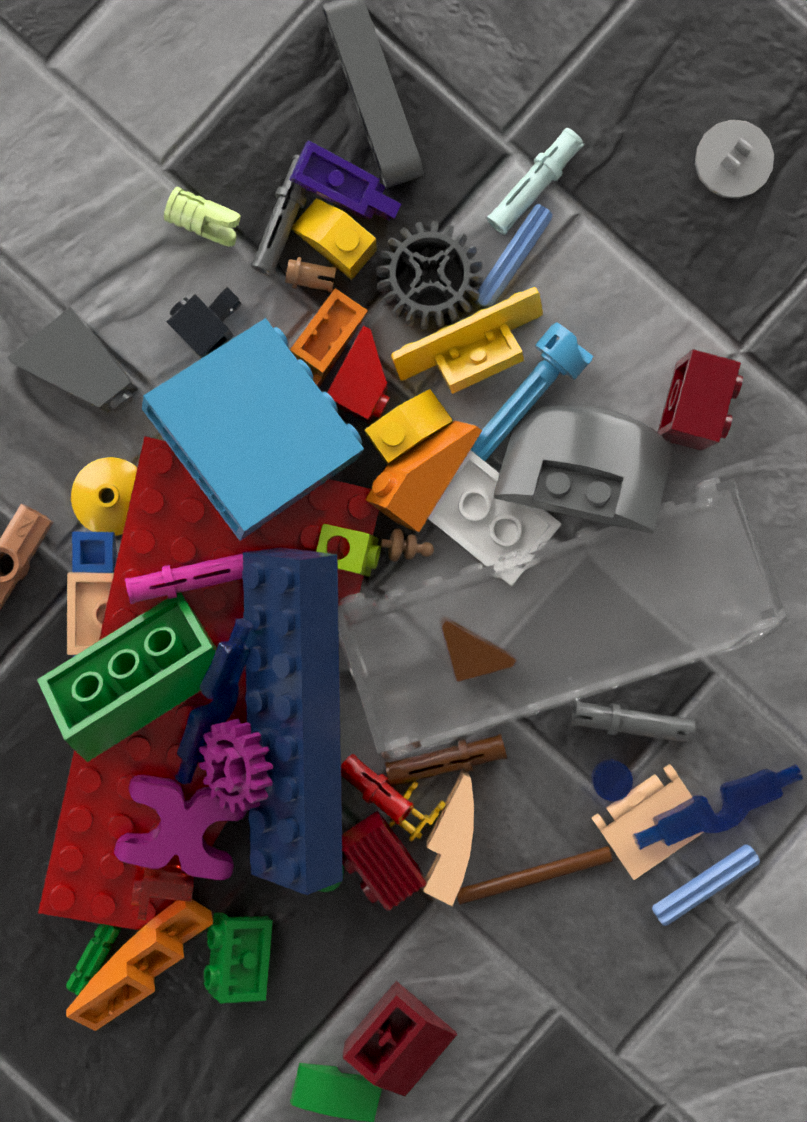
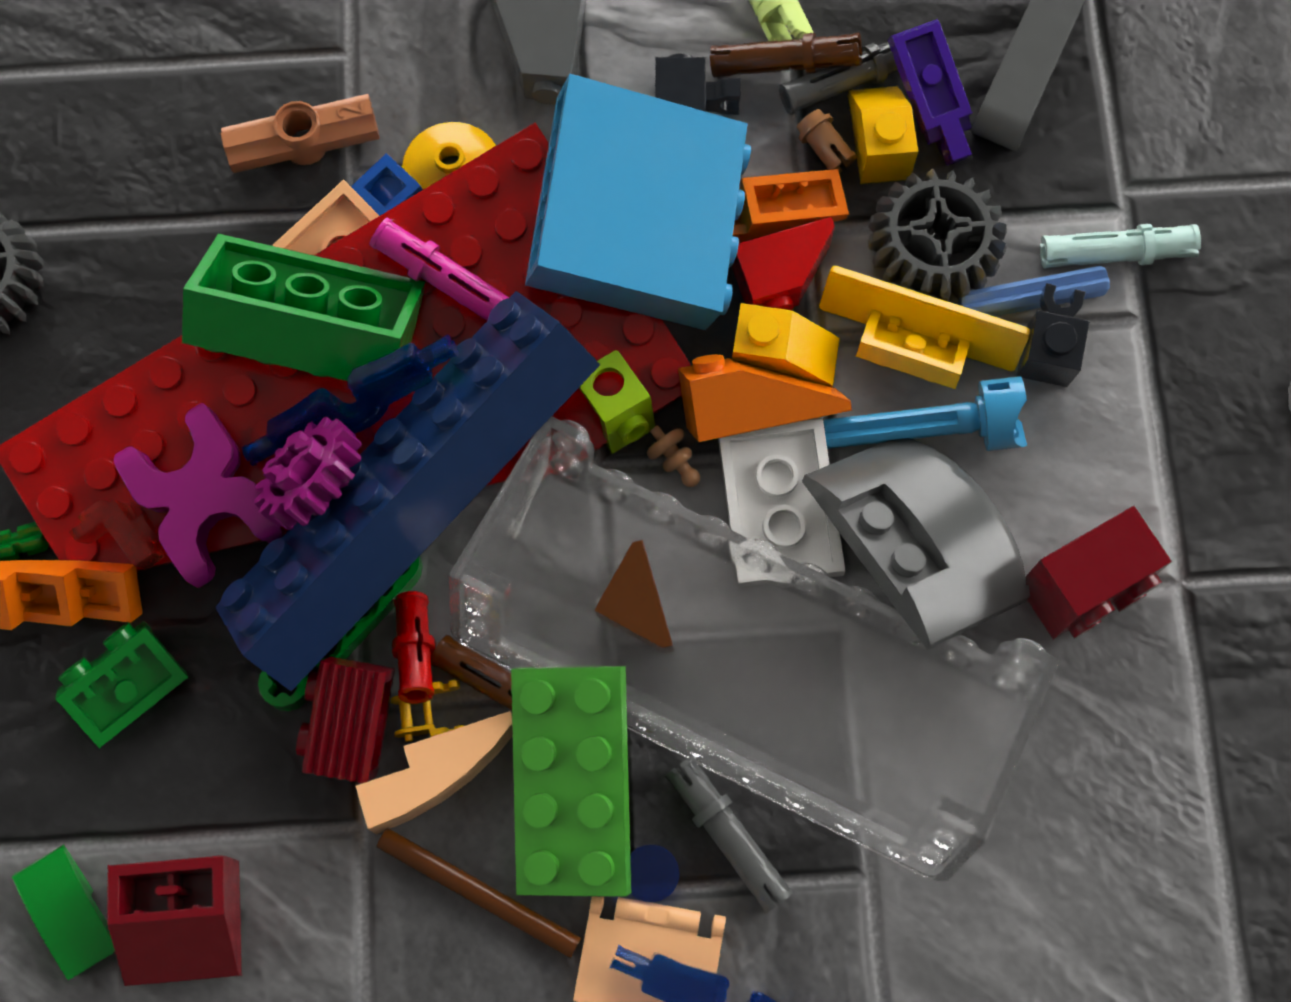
camera: 50 degrees right, 15 degrees down
(238, 243) = (795, 54): none -> reddish brown pin
(529, 777) = (571, 781): none -> bright green plate
(554, 279) = (1055, 341): none -> black brick

